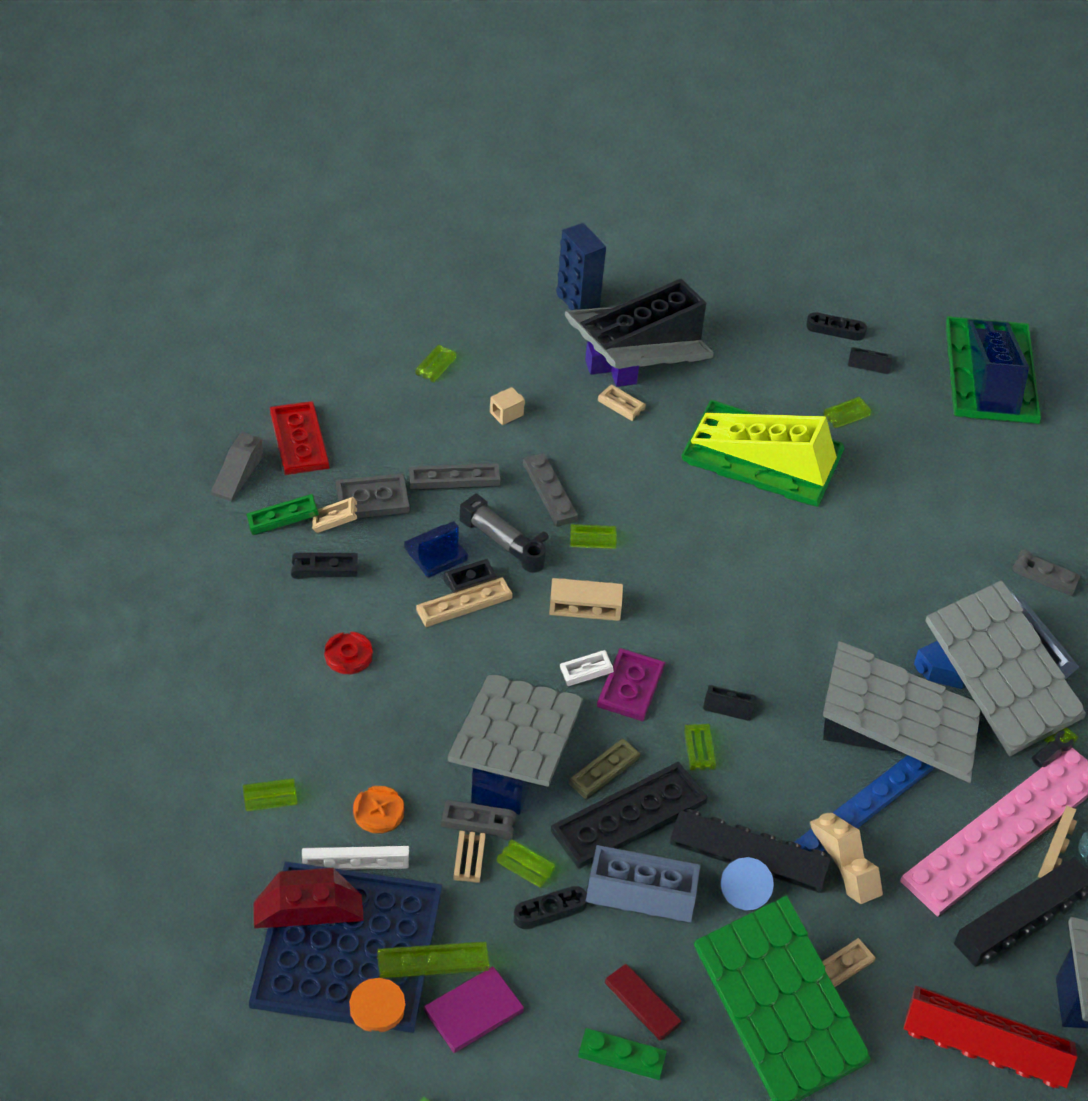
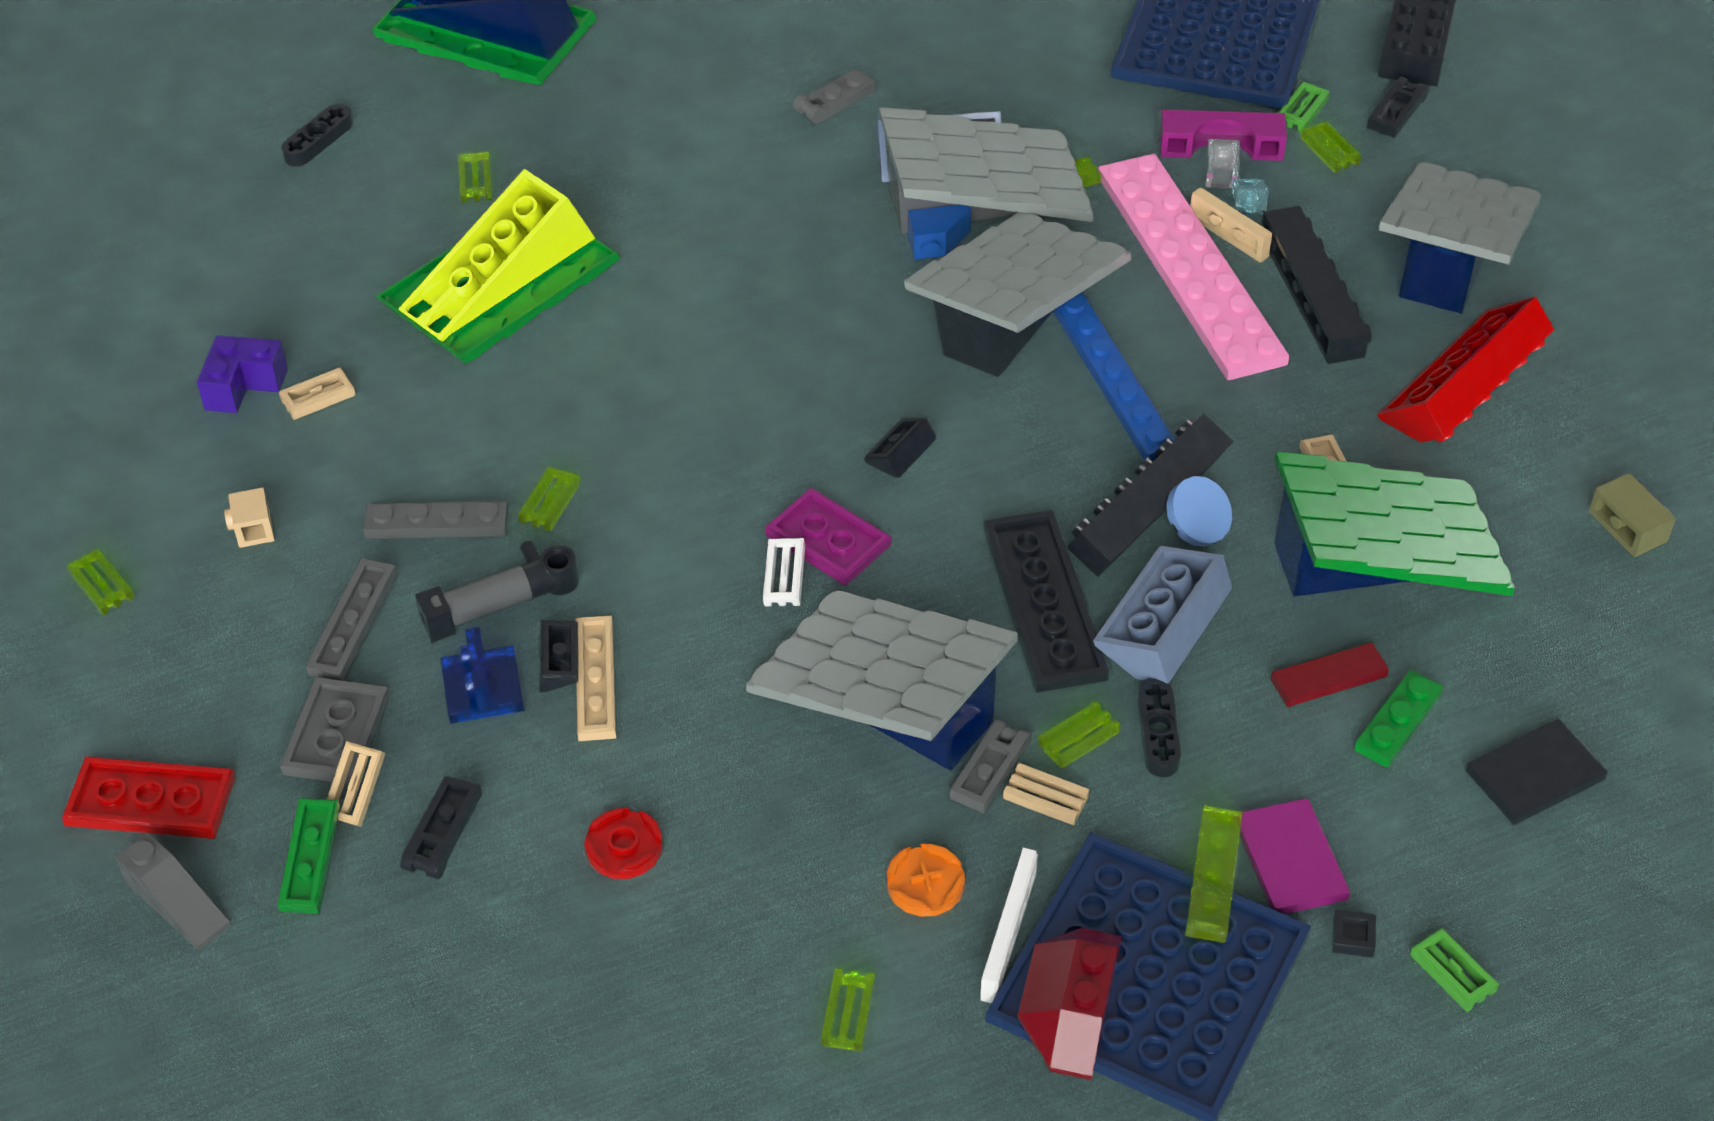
camera: 65 degrees left, 0 degrees up
(377, 1005) = (1270, 955): orange tile -> none
(421, 1057) = (1354, 933): none -> black plate
(581, 268) = (64, 333): dark blue brick -> none
(586, 599) = (665, 535): tan brick -> none
(604, 768) = (949, 592): olive tile -> none
(647, 329) = (221, 305): black piece -> none
(693, 763) = (958, 502): clear neon green tile -> none
(845, 848) = (1183, 397): tan arch -> none
(870, 360) = (397, 125): black slope -> none
(1052, 751) = (1102, 182): black bar -> none

